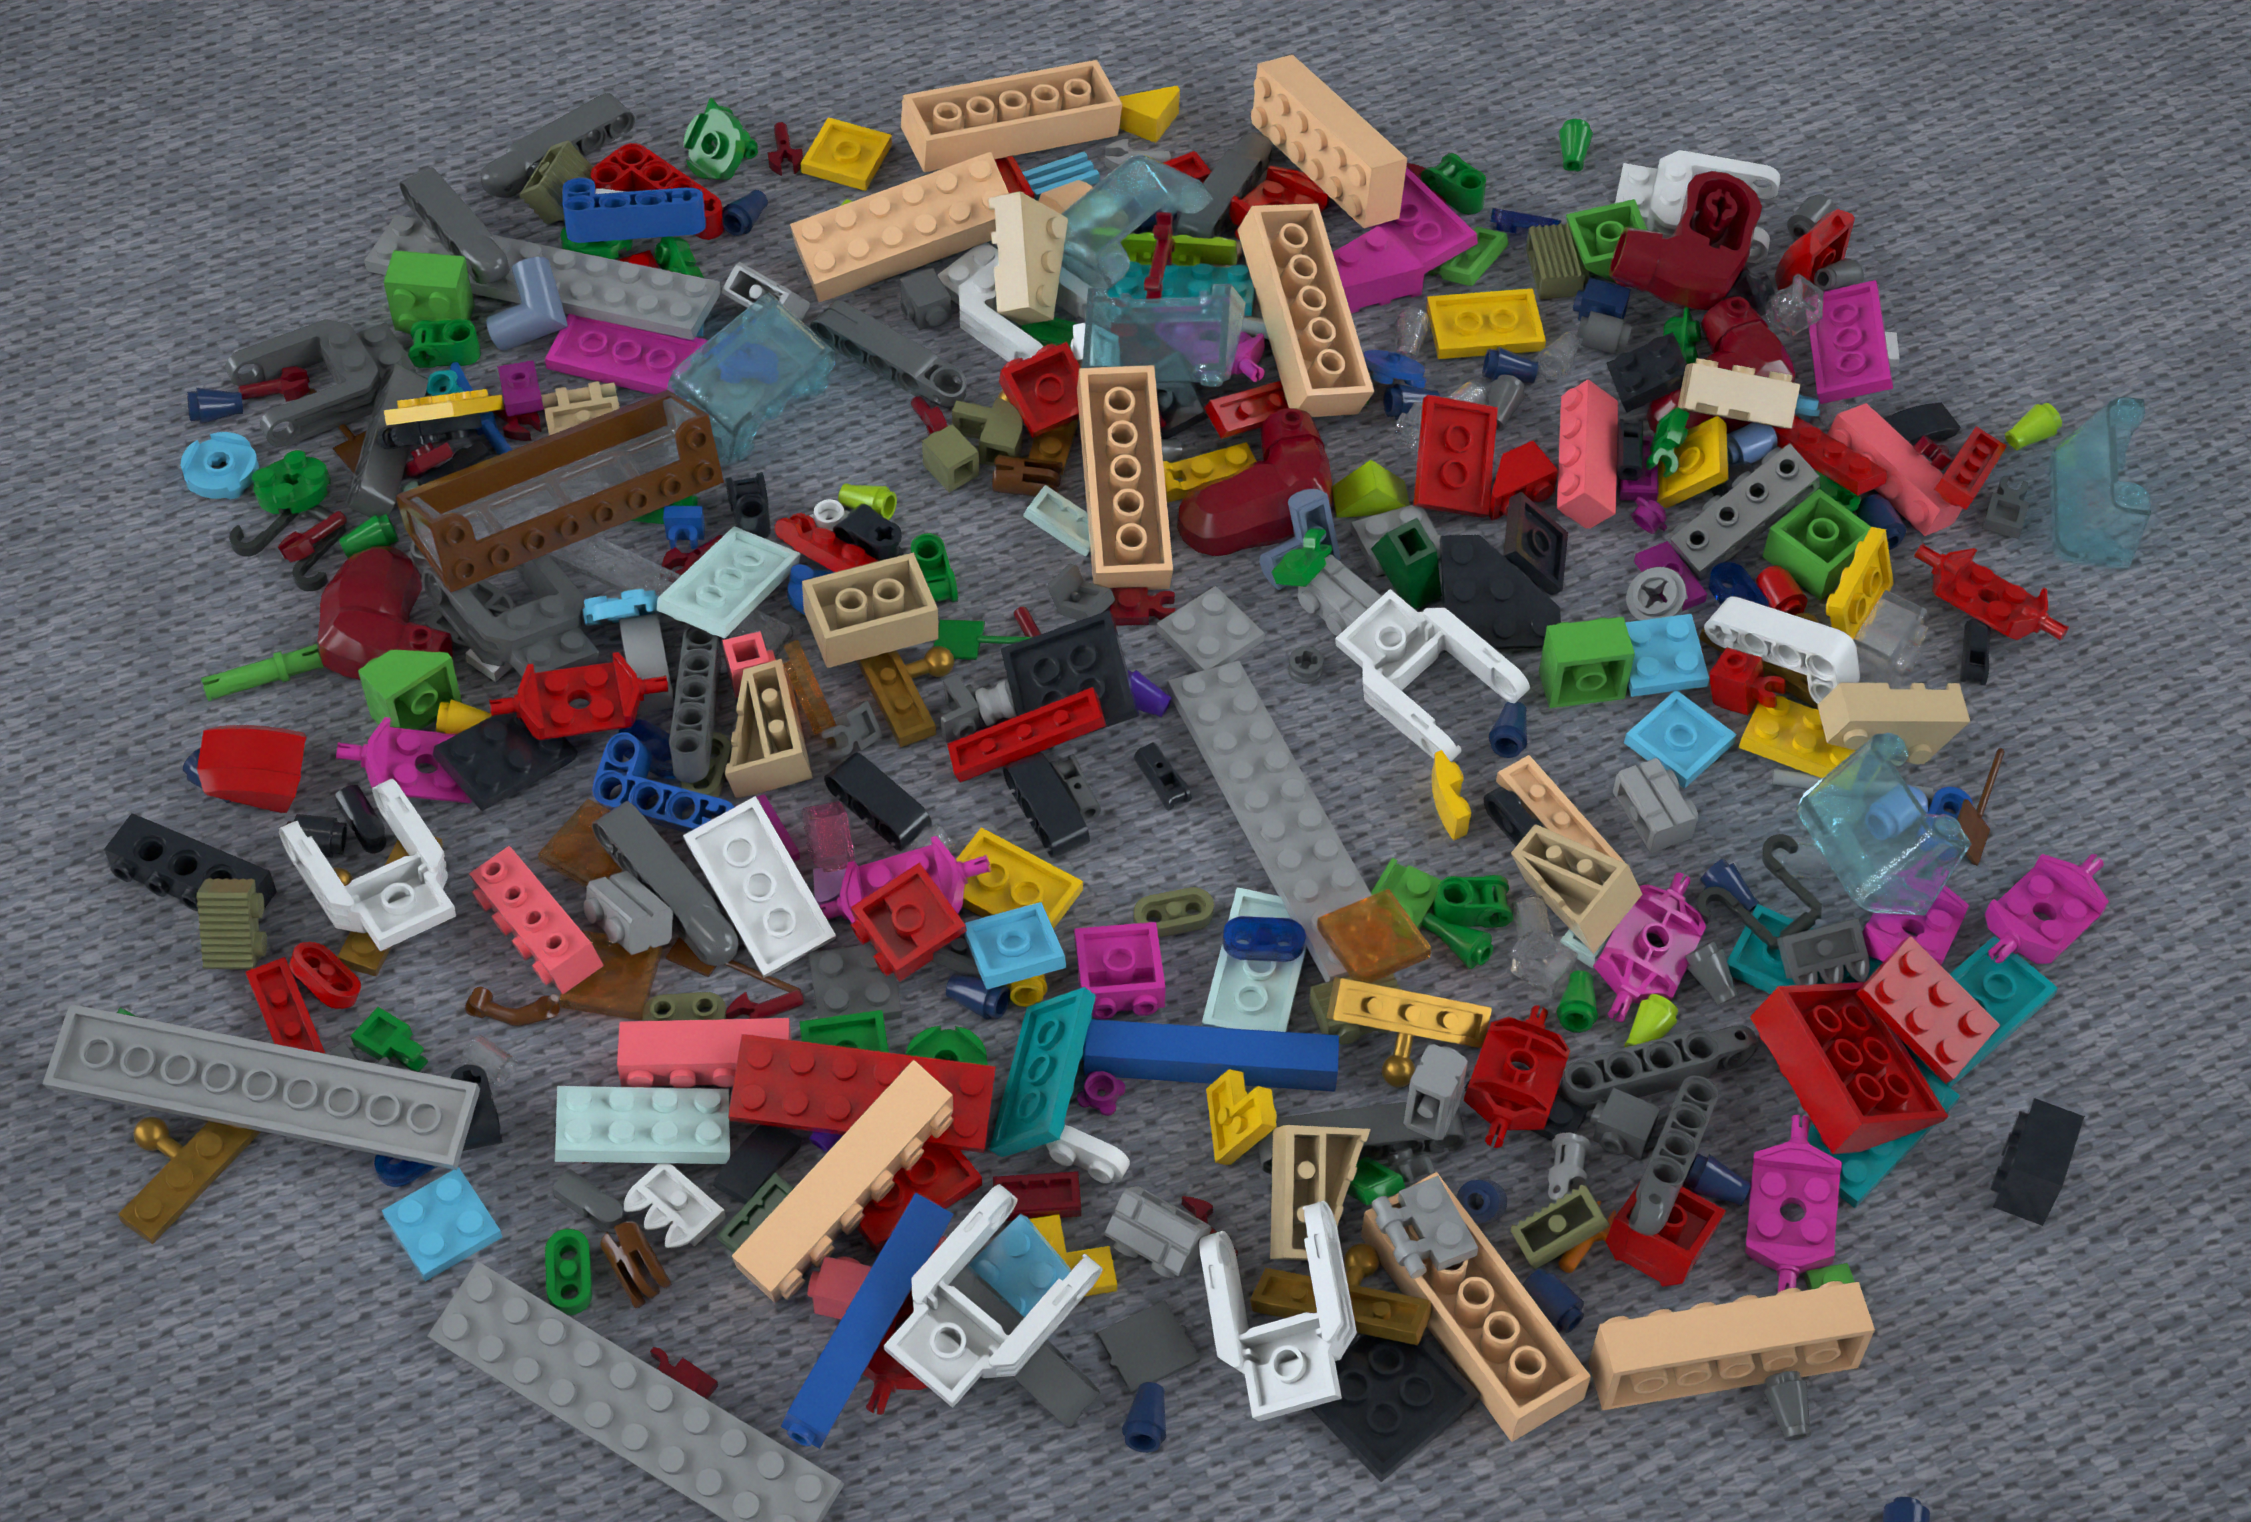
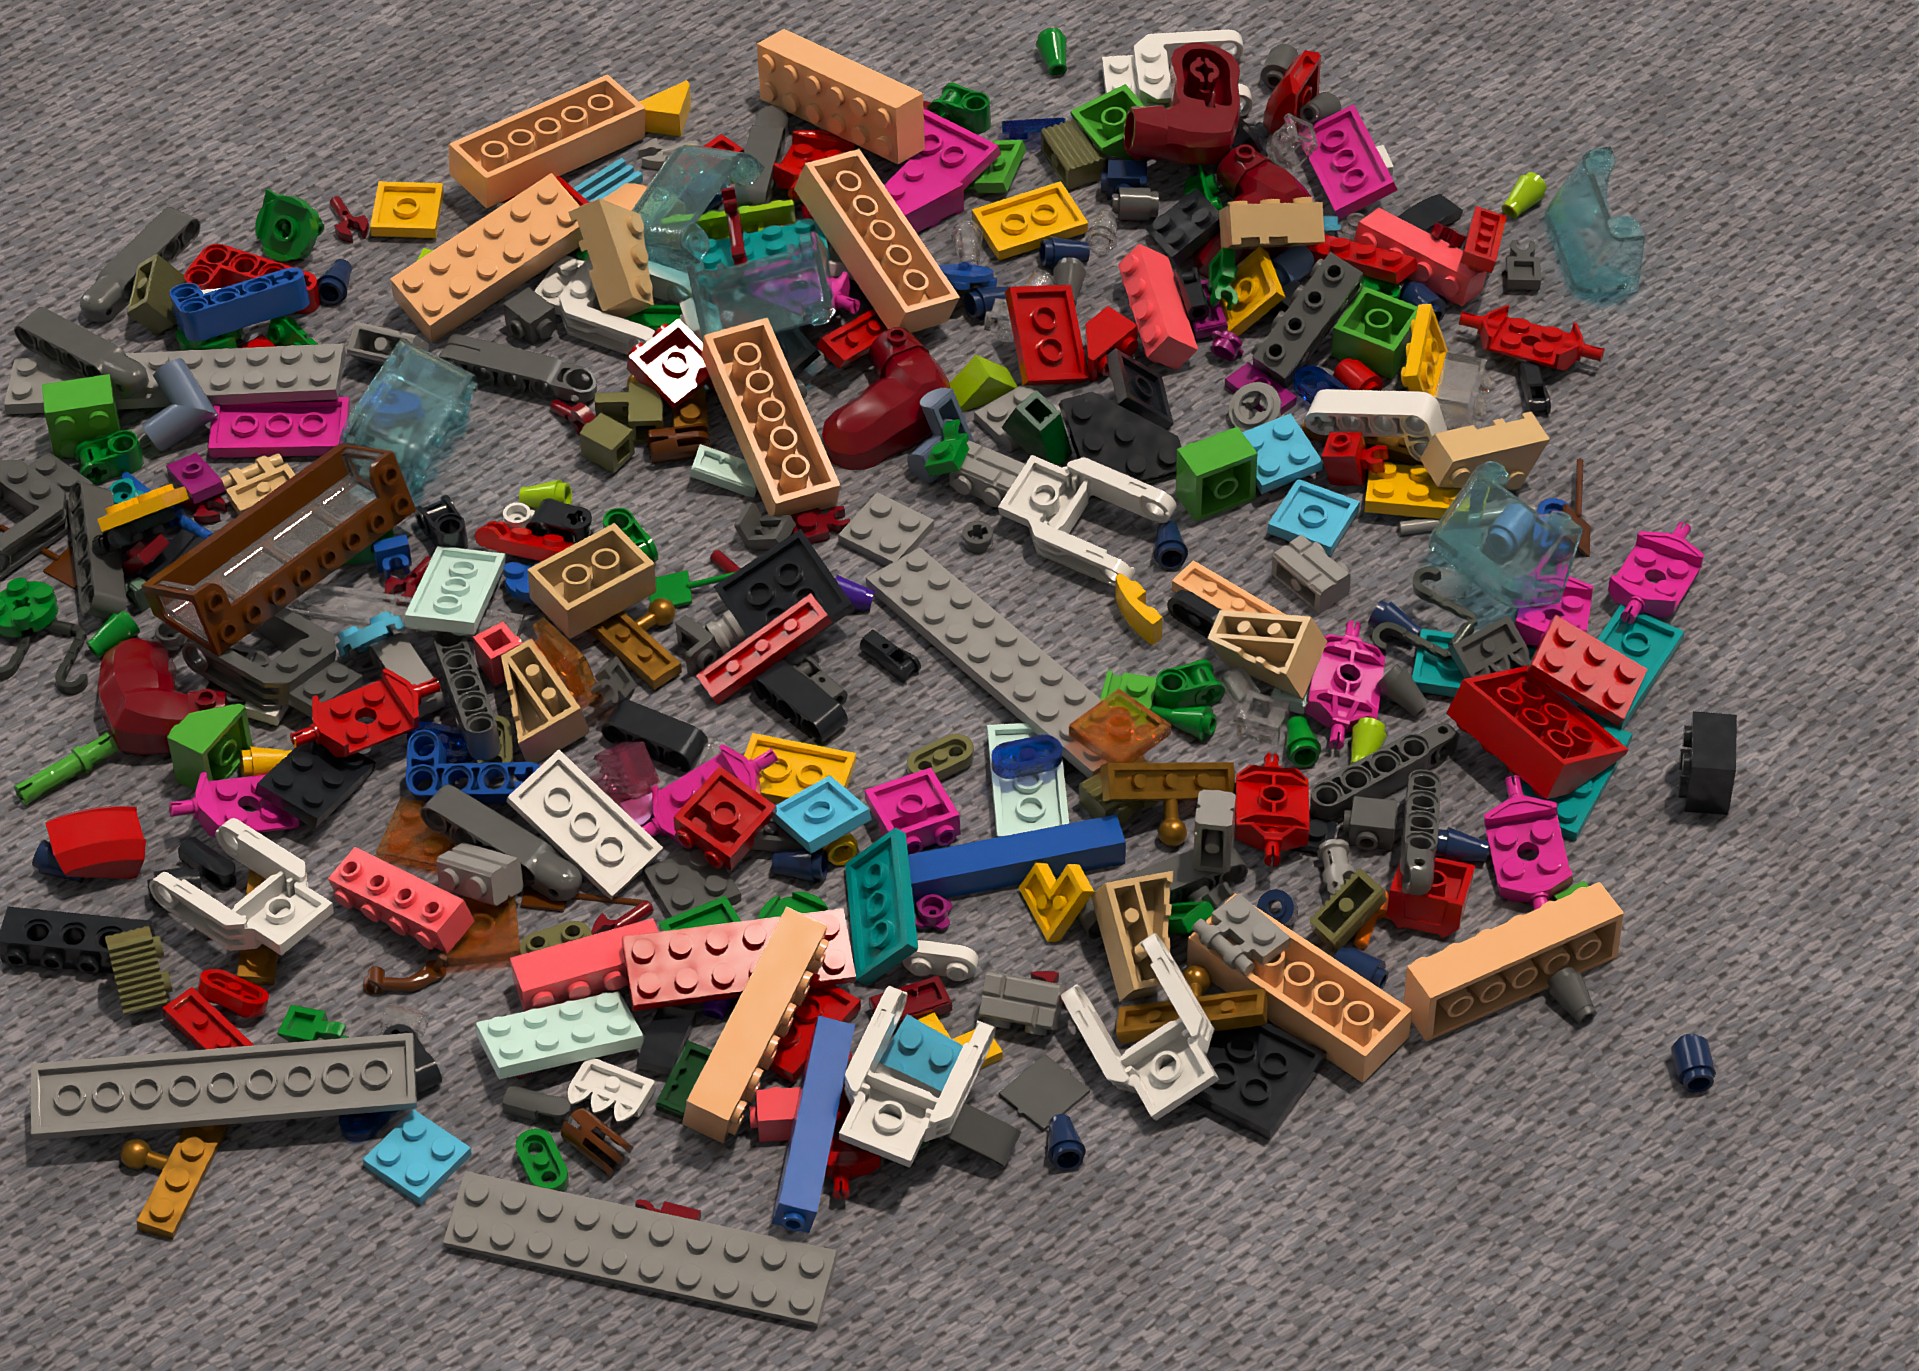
camera: 15 degrees left, 5 degrees down
(298, 545) = (55, 656): dark red bar -> none
(1204, 469) = (836, 395): yellow plate -> none

